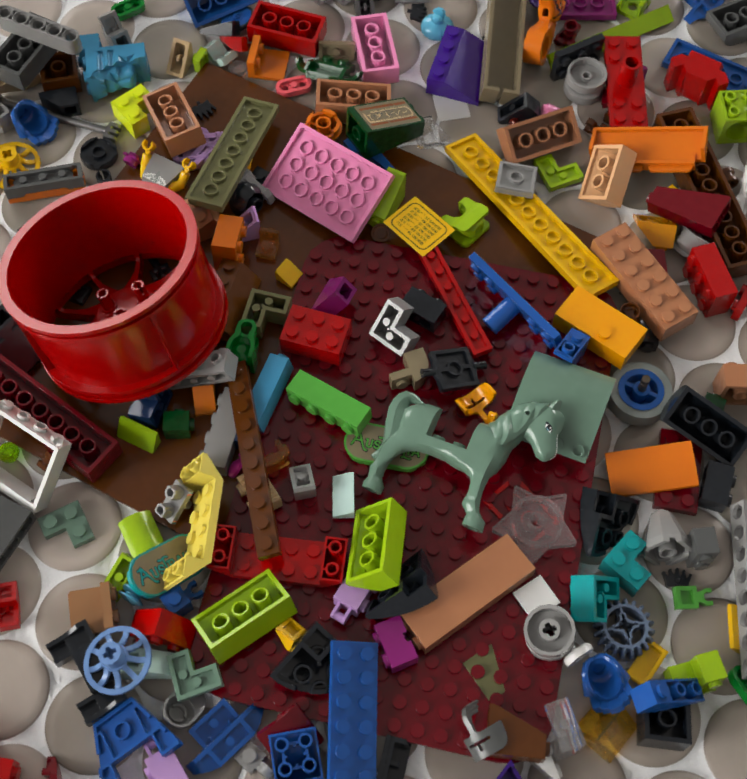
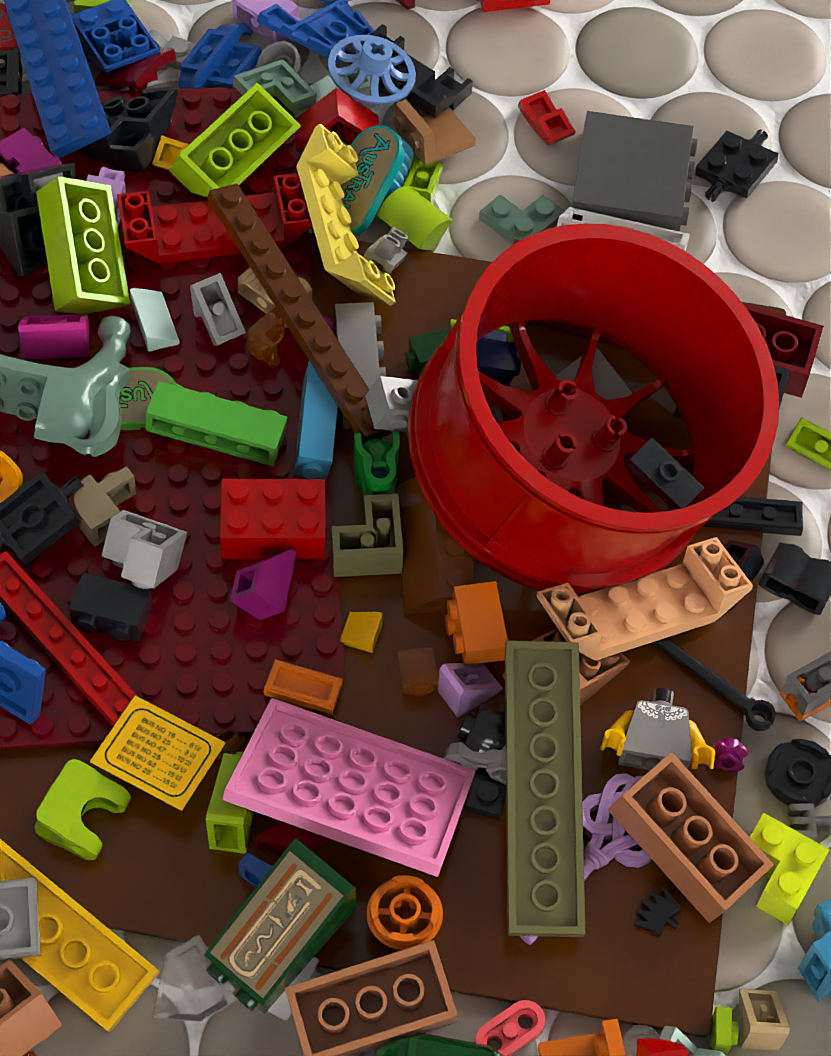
camera: 160 degrees right, 5 degrees down
(100, 219) = (664, 475): none -> black plate
(332, 247) = (303, 686): none -> orange tile
(413, 495) = (54, 336): none -> dark pink slope

